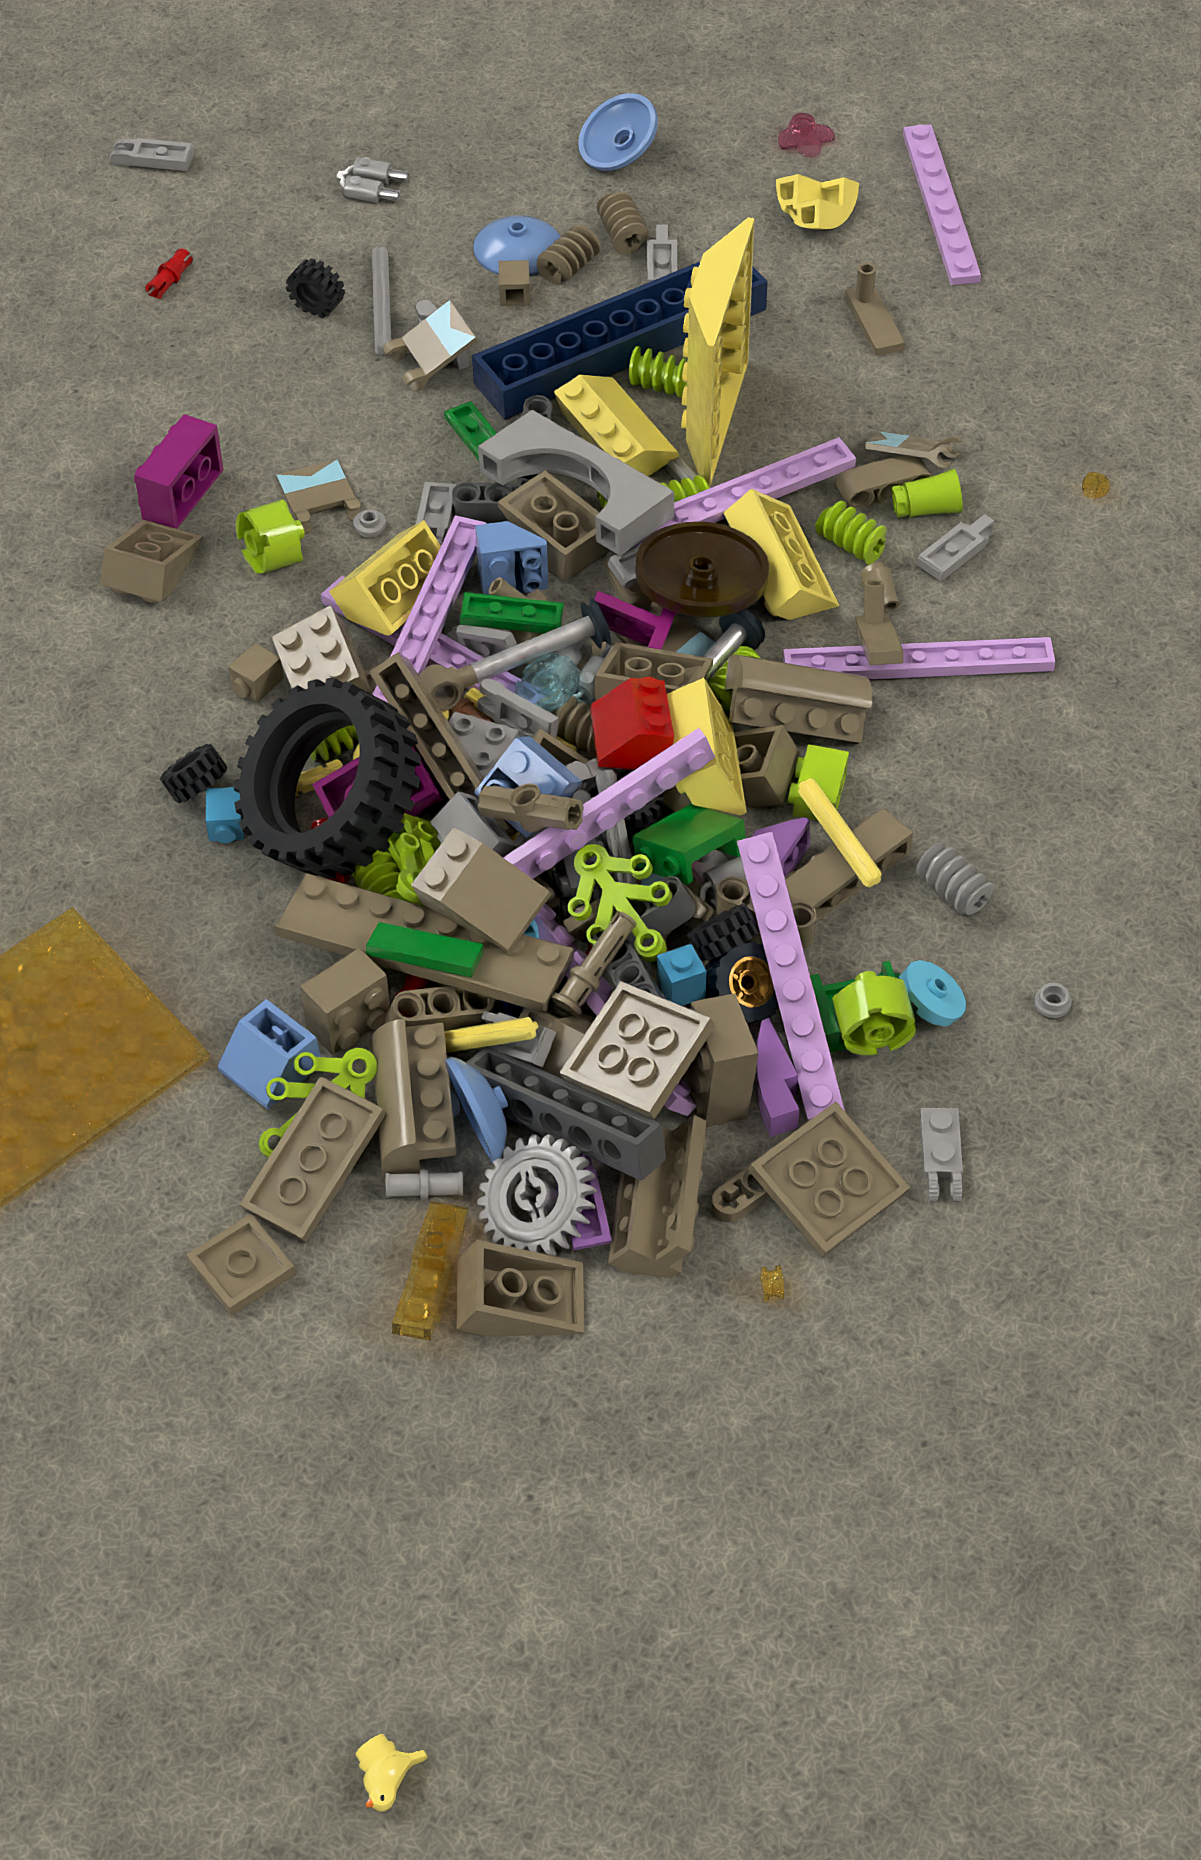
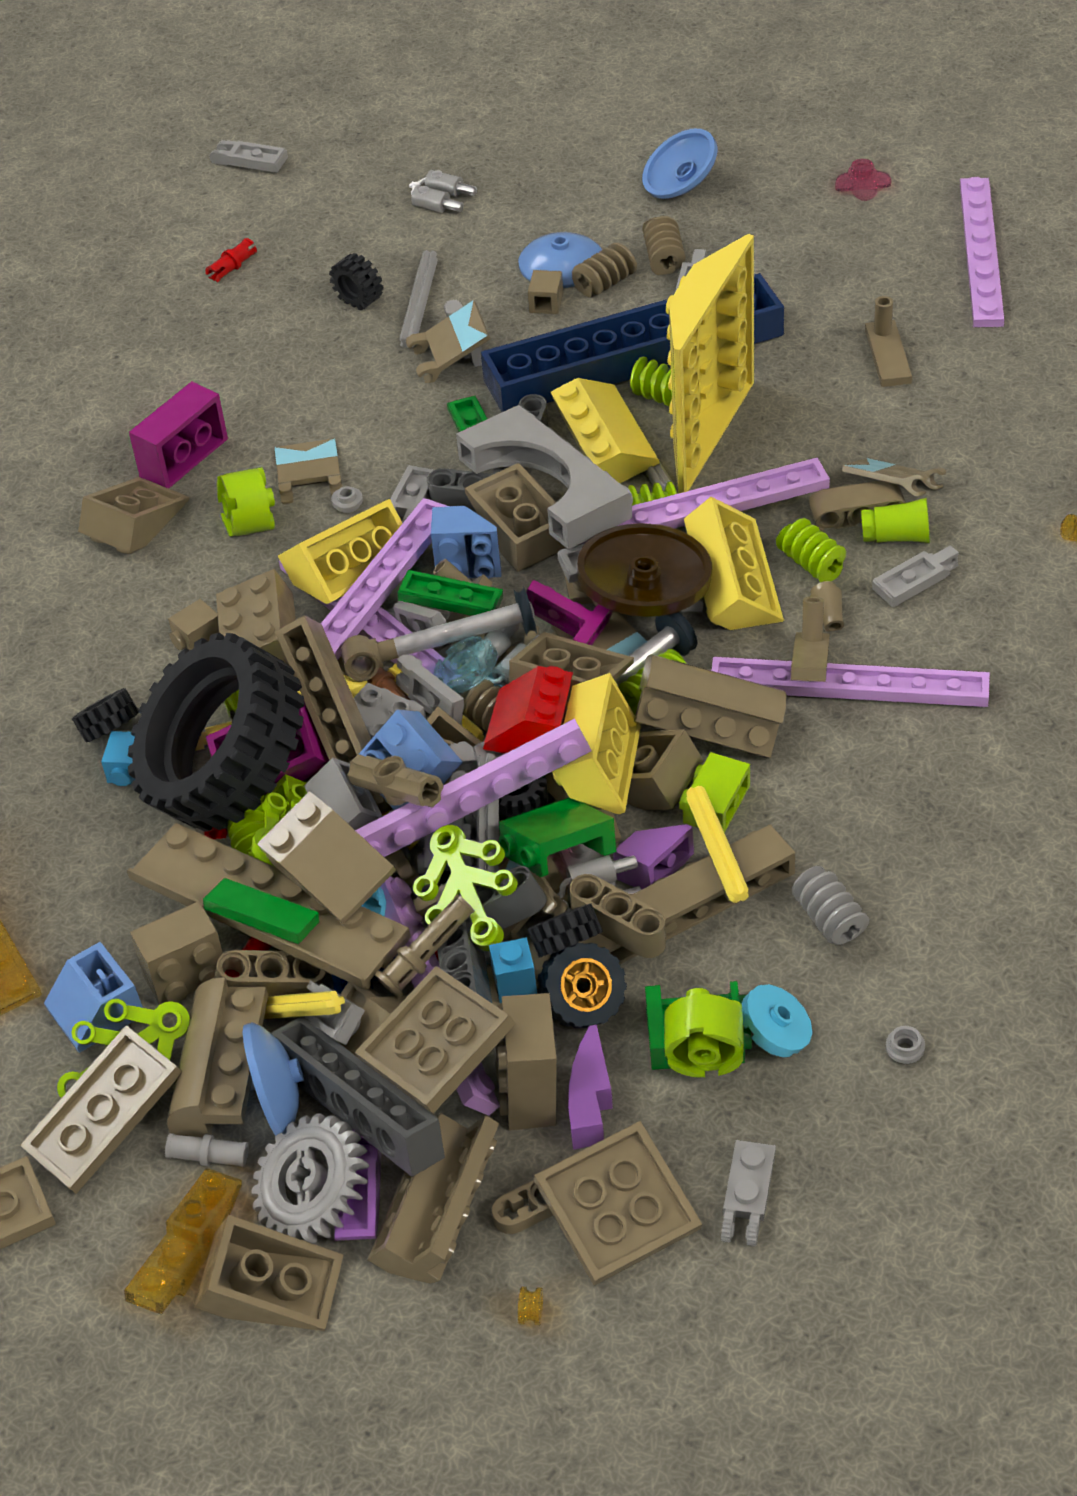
camera: 15 degrees right, 5 degrees down
(790, 973) = (624, 983): lavender plate -> none
(817, 203) = (857, 241): light yellow brick -> none

